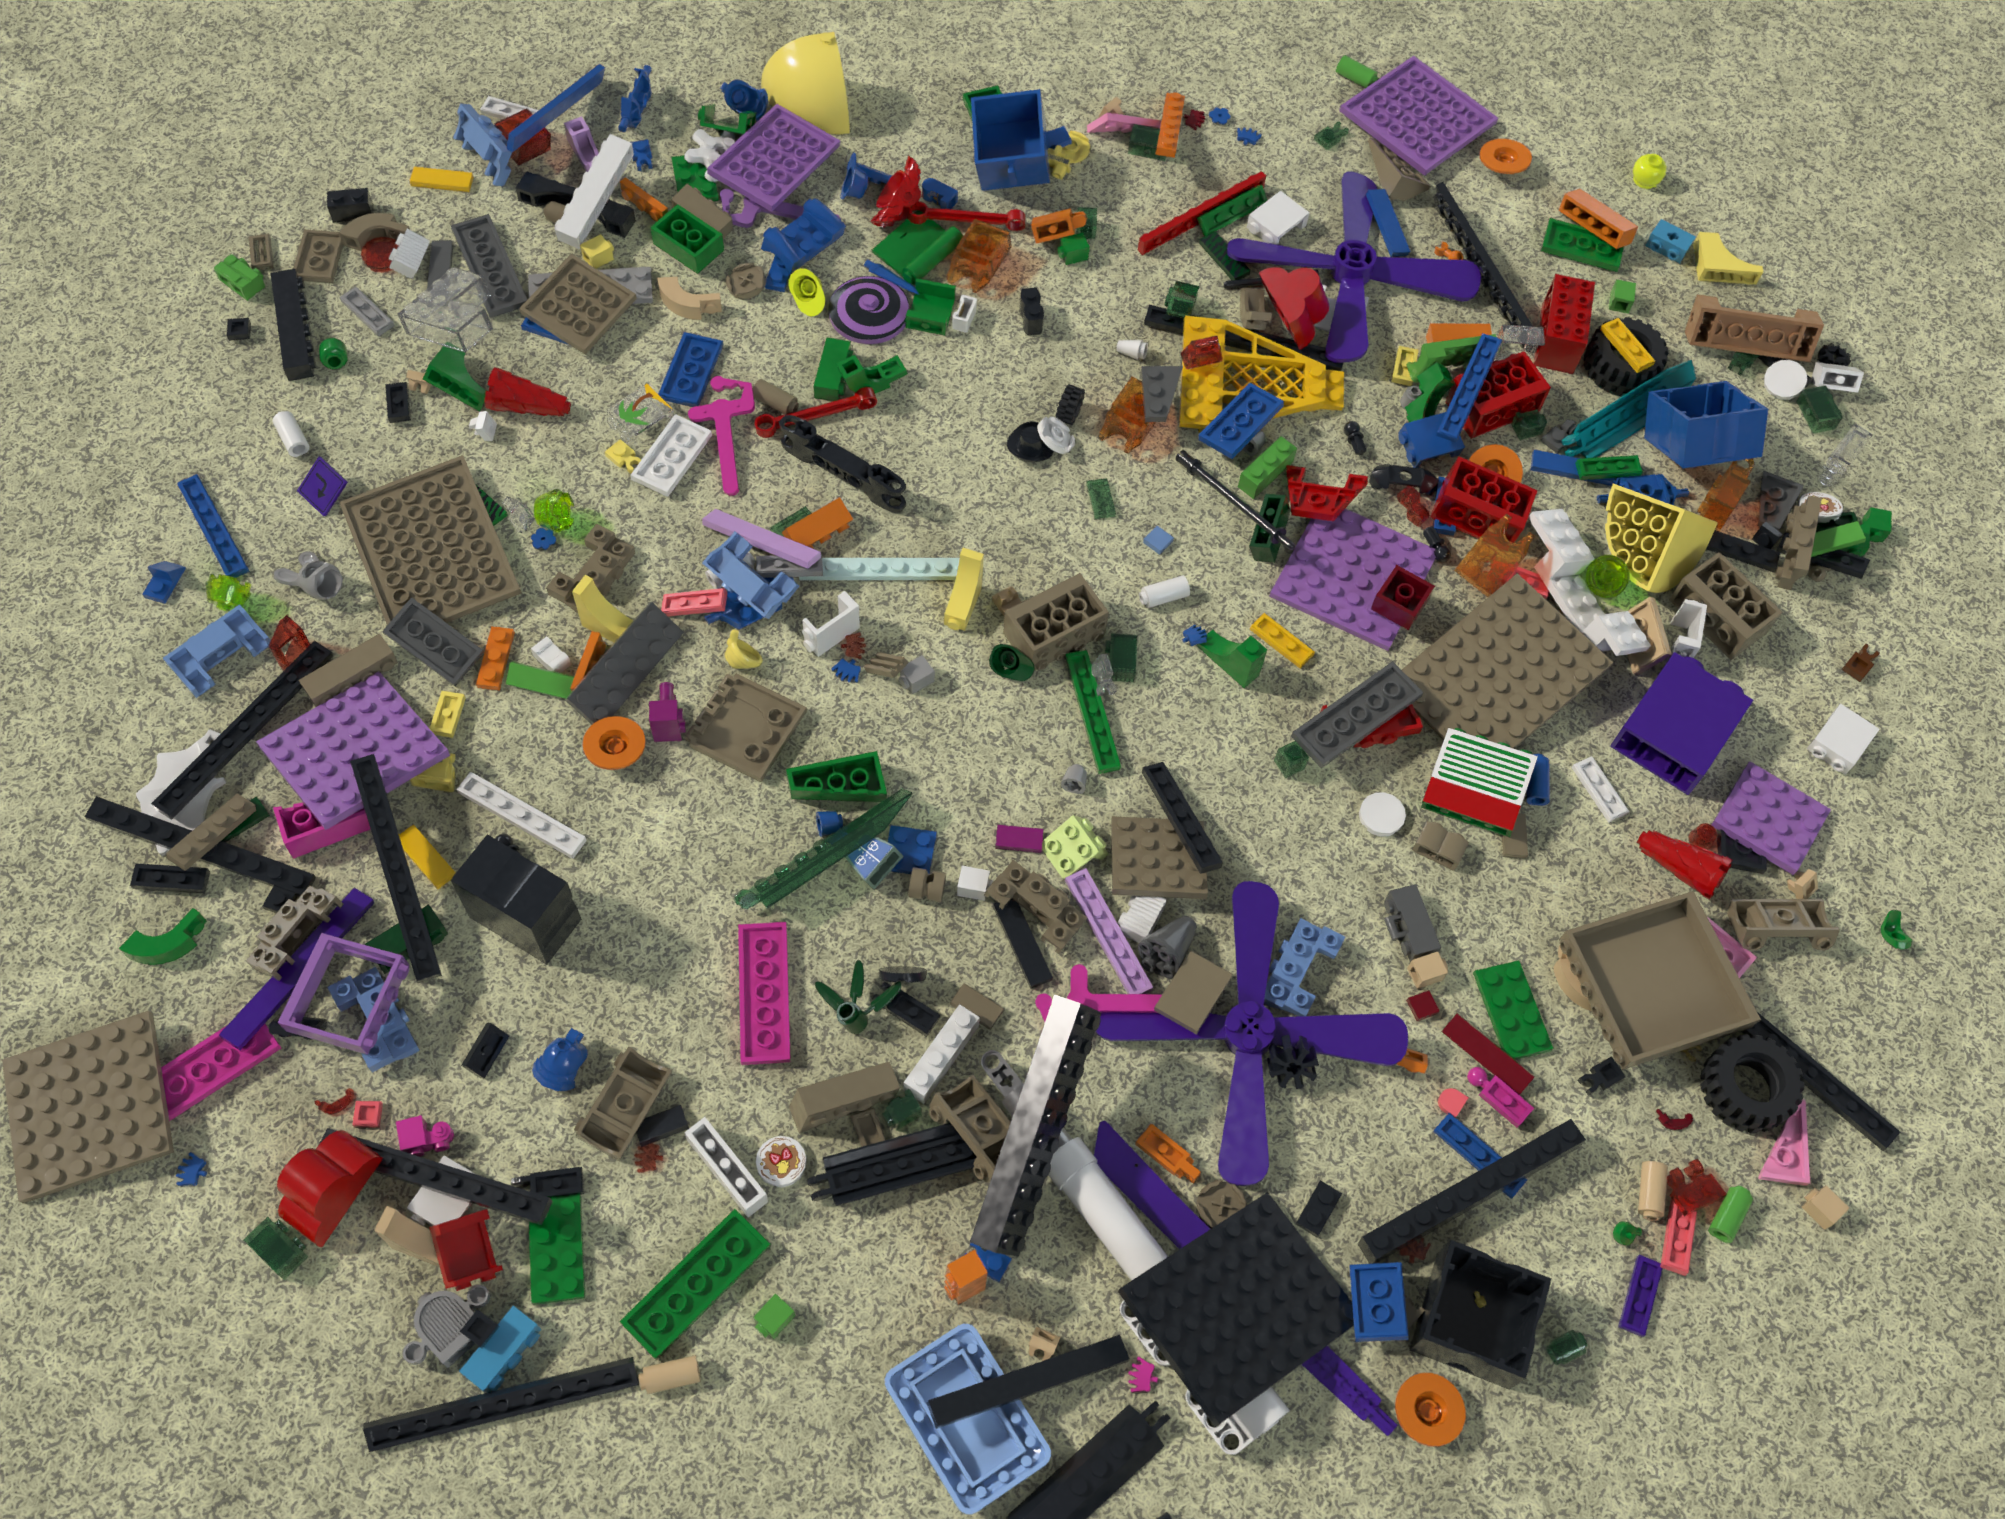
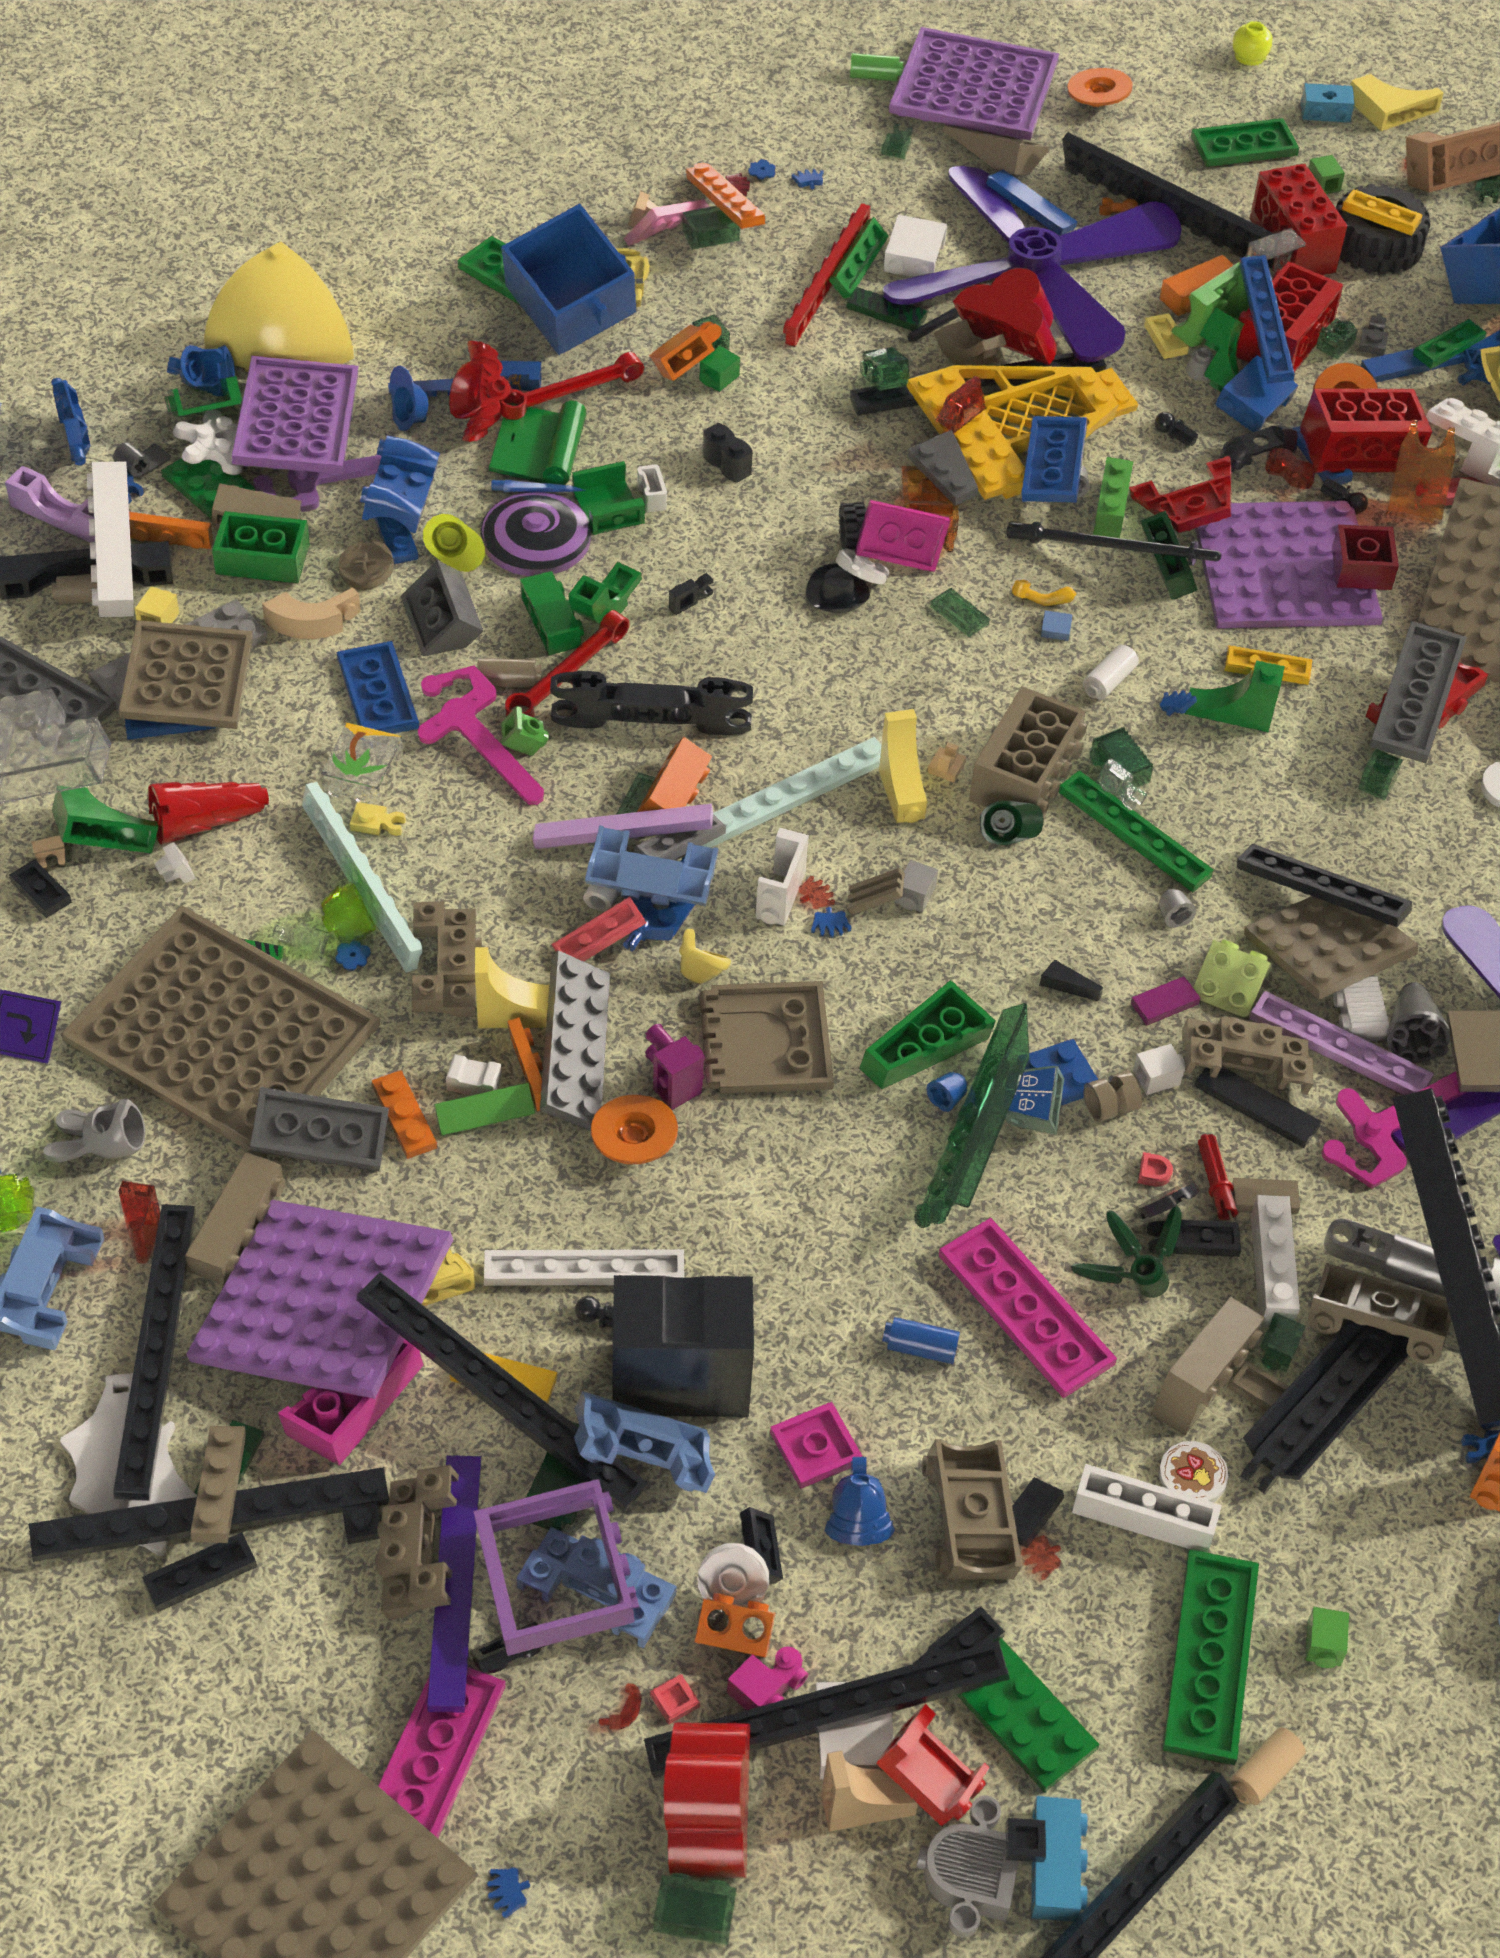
camera: 30 degrees left, 10 degrees down
(165, 947) = (259, 1657): green arch -> none
(425, 1096) = (734, 1636): none -> orange brick
(447, 714) = (398, 1199): light yellow plate -> none
(448, 1061) = (734, 1572): none -> white tile
(460, 942) = (623, 1430): none -> medium blue bracket
(567, 1006) = (815, 1444): none -> dark pink plate
(584, 497) = (357, 870): none -> light aqua plate
(662, 147) = (139, 462): none -> dark grey panel
(671, 455) = (434, 791): white plate -> none
(682, 977) = (921, 1340): none -> blue brick
(751, 444) = (523, 732): none -> bright green brick
(767, 335) = (441, 610): none -> dark grey slope
(919, 949) = (1154, 1170): none -> coral tile
(929, 399) = (687, 594): none -> black plate
(950, 984) = (1220, 1187): none -> red axle
(962, 786) = (1067, 980): none -> black piece
(979, 254) = (620, 416): clear orange brick -> none
(1093, 426) = (902, 536): none -> dark pink tile
(1133, 348) = (868, 443): white cone -> none
(1174, 520) = (1061, 596): none -> yellow piece
(1598, 218) = (1243, 108): orange brick -> none
(1625, 414) = (1423, 289): teal hinge -> none

